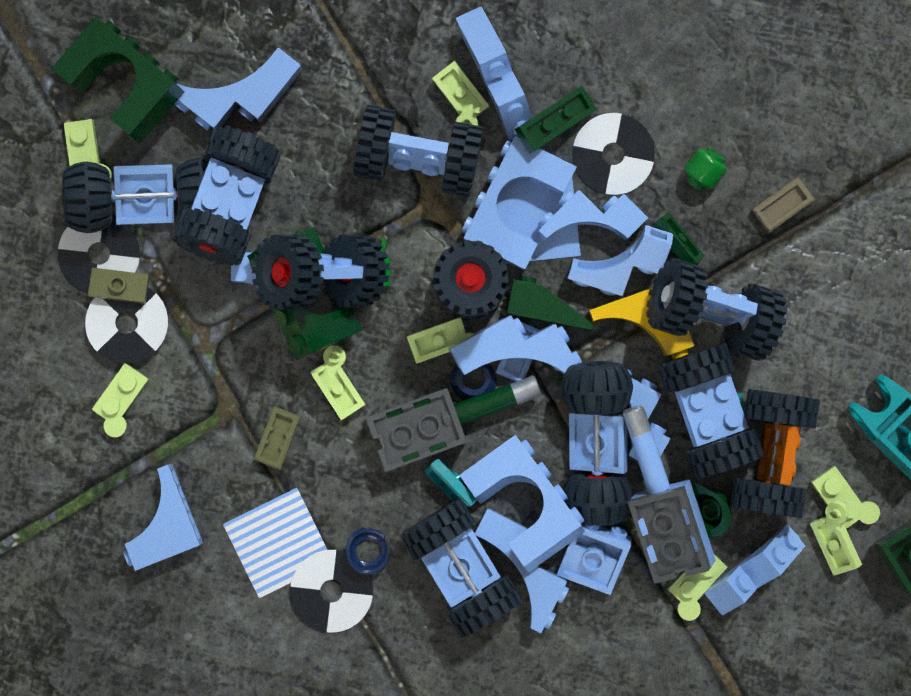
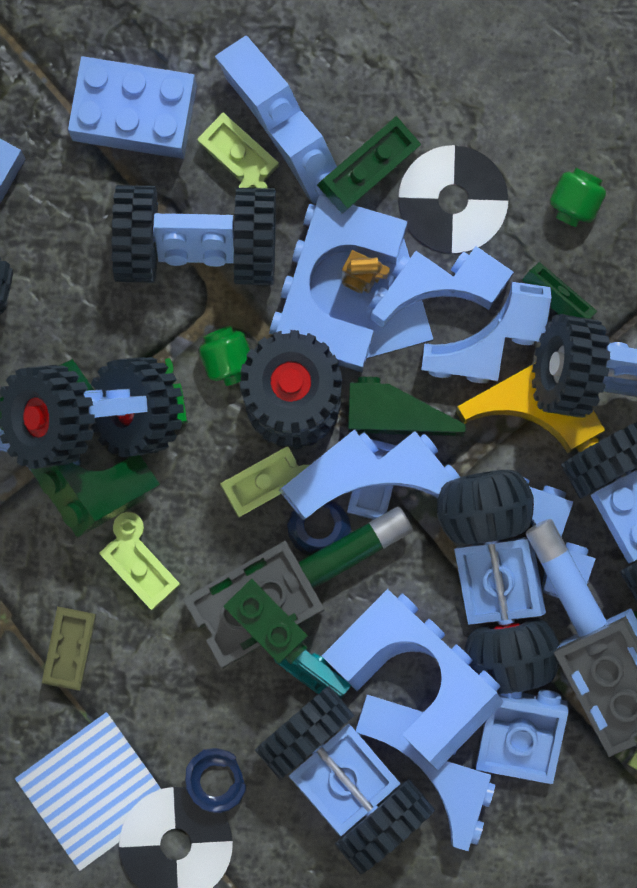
camera: 10 degrees left, 5 degrees down
(388, 46) = (132, 107): none -> light blue brick
(424, 447) = (267, 623): none -> dark green brick
(426, 242) = (224, 354): none -> green head
(536, 198) = (362, 272): none -> pearl gold piece

